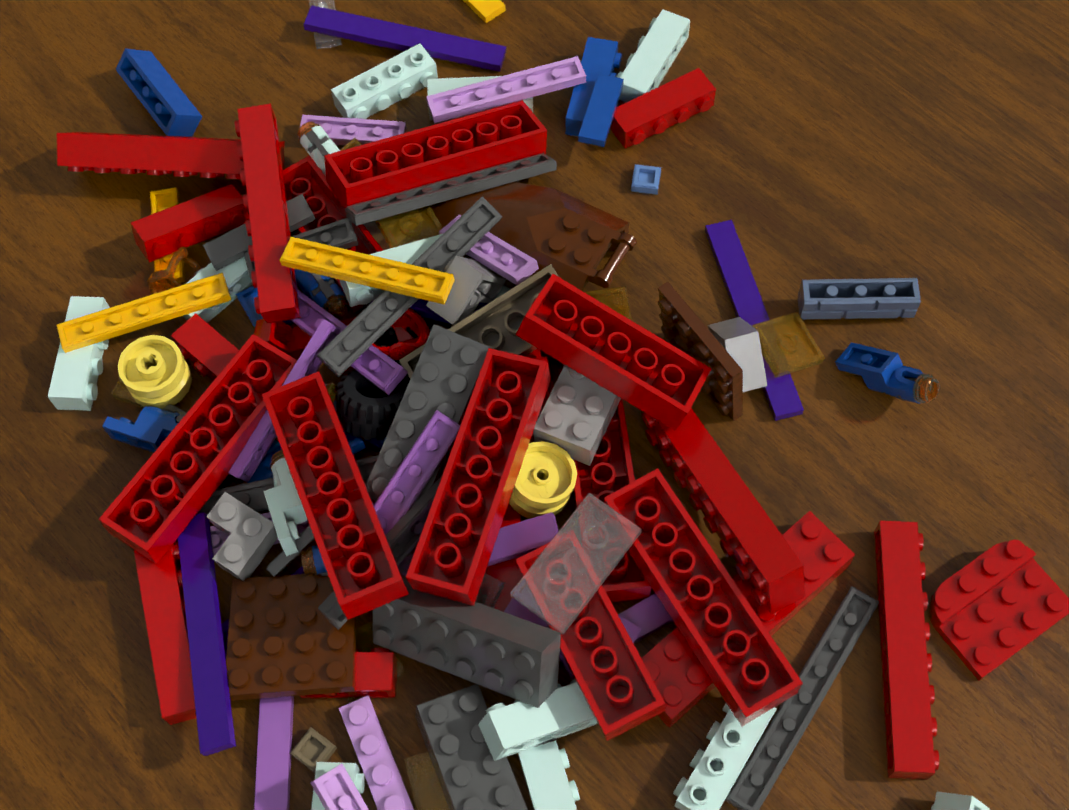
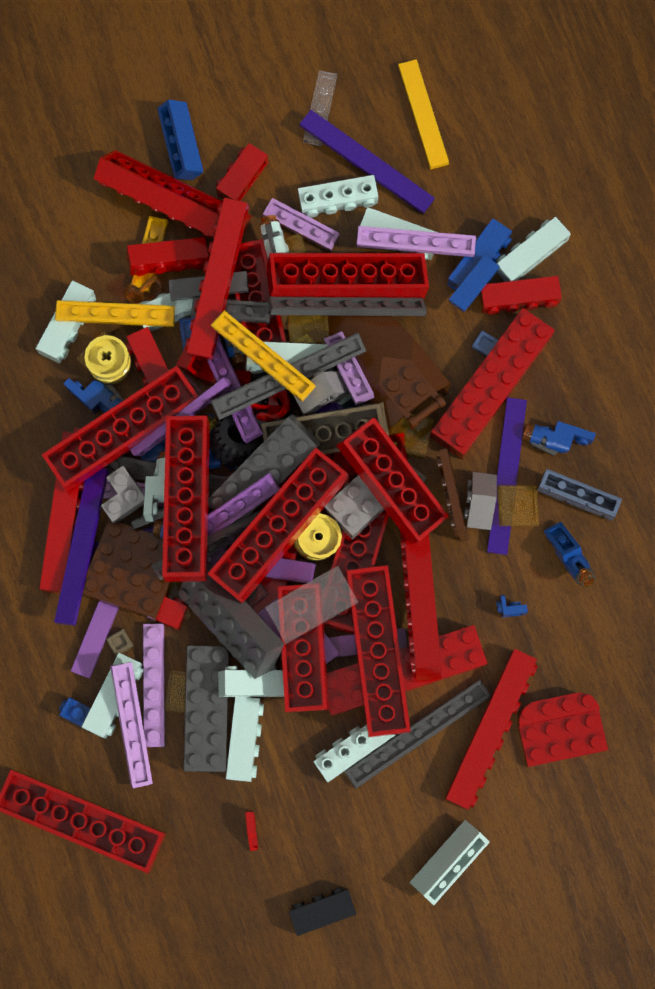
camera: 20 degrees right, 15 degrees up
(256, 87) = (242, 173): none -> red brick
(678, 212) = (492, 383): none -> red brick
(795, 246) = (556, 440): none -> blue plate
(845, 477) = (512, 610): none -> blue bracket

